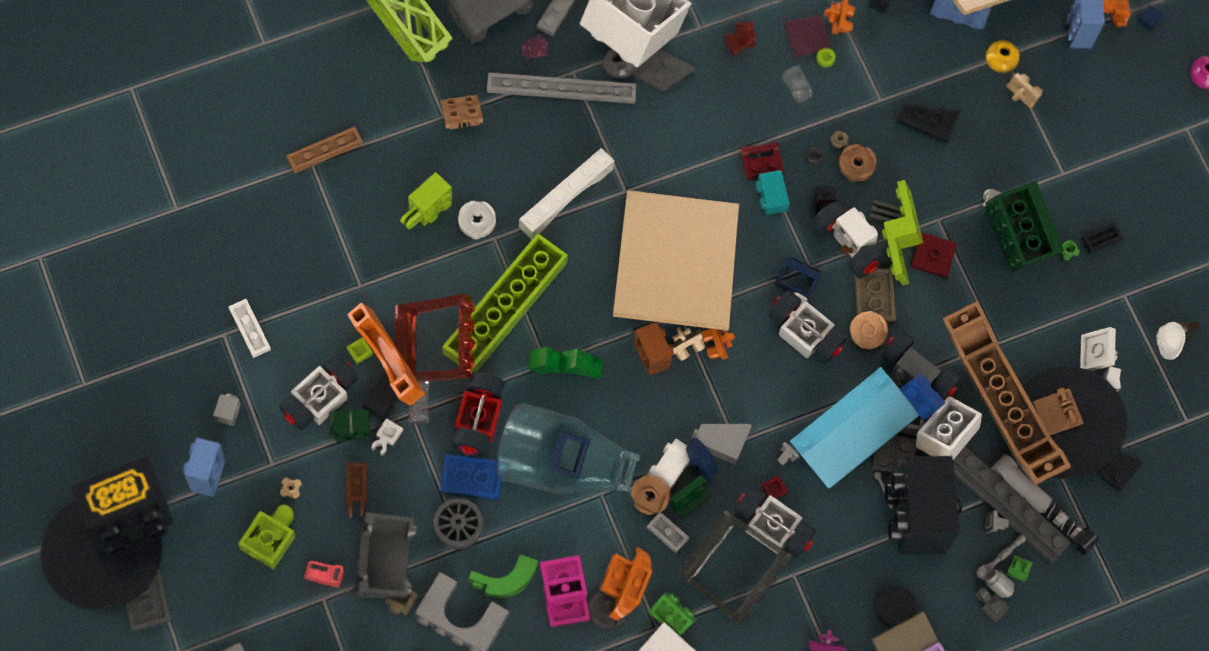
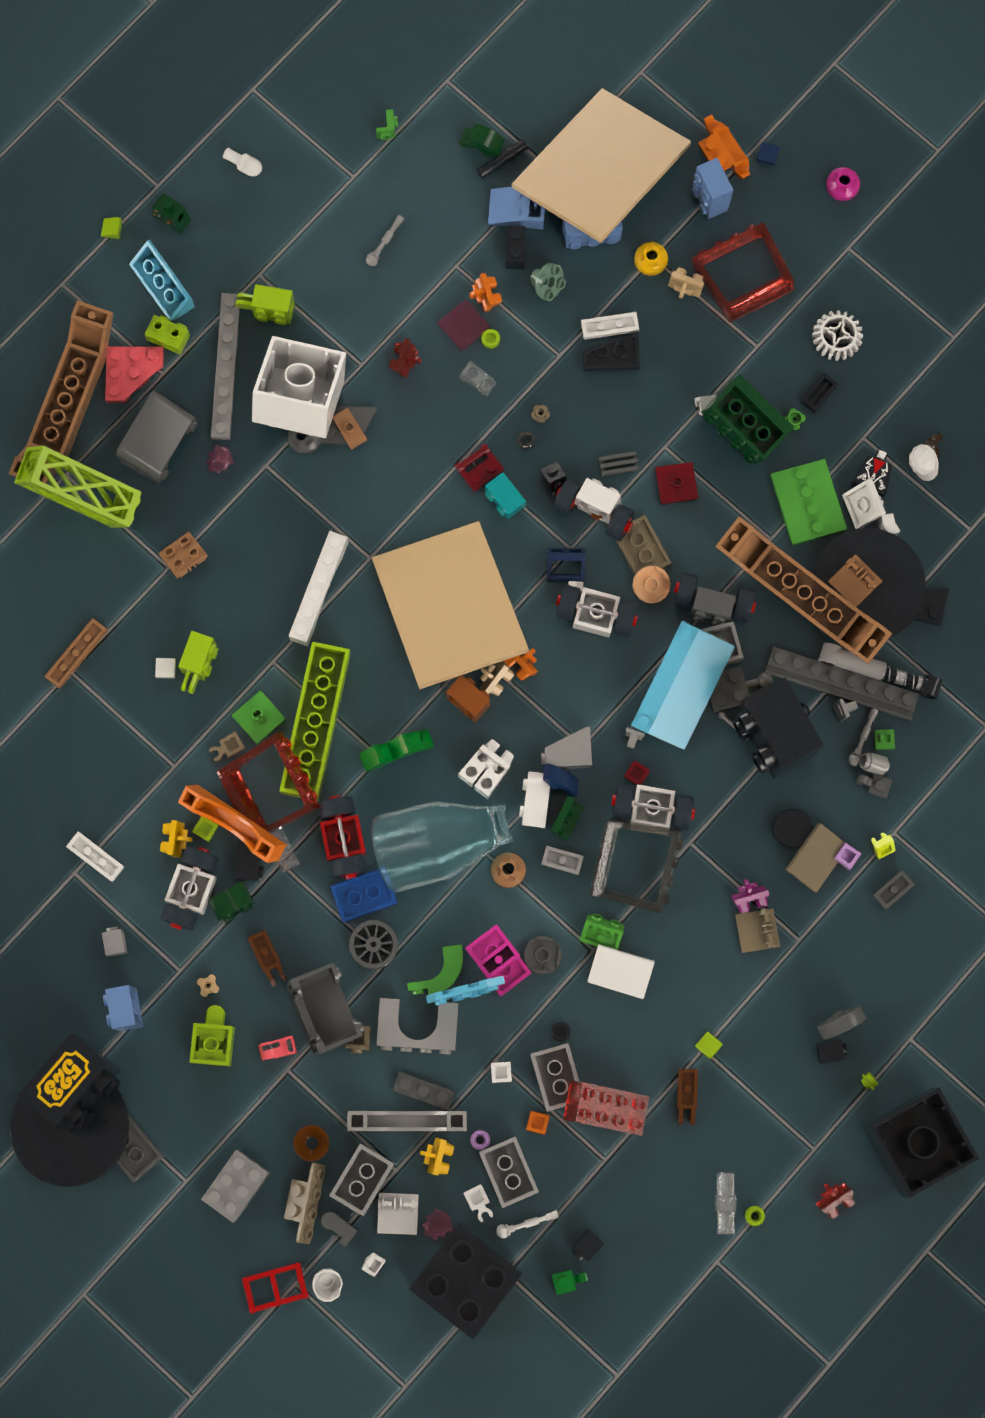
camera: 20 degrees left, 10 degrees up
(331, 345) = (177, 838): none -> yellow hips
(387, 434) = (270, 893): white plate -> none
(396, 198) = (165, 667): none -> white tile
(419, 290) = (230, 746): none -> dark tan plate
(457, 277) = (258, 717): none -> bright green tile
(477, 209) = (250, 663): white plate -> none
(518, 600) = (465, 991): none -> medium azure plate
(559, 449) = (430, 834): dark blue tile -> none
(561, 88) = (263, 487): light grey plate -> none
(612, 527) = (506, 880): none -> medium nougat piece
(626, 582) = (548, 924): orange plate -> none
(638, 418) = (486, 761): none -> white hips
(656, 485) = (531, 824): medium nougat plate -> none
(662, 72) = (349, 428): none -> medium nougat plate
(862, 154) = (567, 418): medium nougat plate -> none
(901, 31) = (548, 281): none -> sand green plate
(902, 233) = (640, 479): lime bracket -> none
(922, 396) = (730, 629): blue brick -> none
(938, 94) = (609, 325): none -> white plate
(948, 429) = (766, 646): white brick -> none
(1047, 327) = (808, 502): none -> bright green plate
(1082, 130) = (756, 298): none -> clear red windscreen
(1124, 326) = (874, 469): none -> black torso
(1137, 186) = (844, 337): none -> white gear

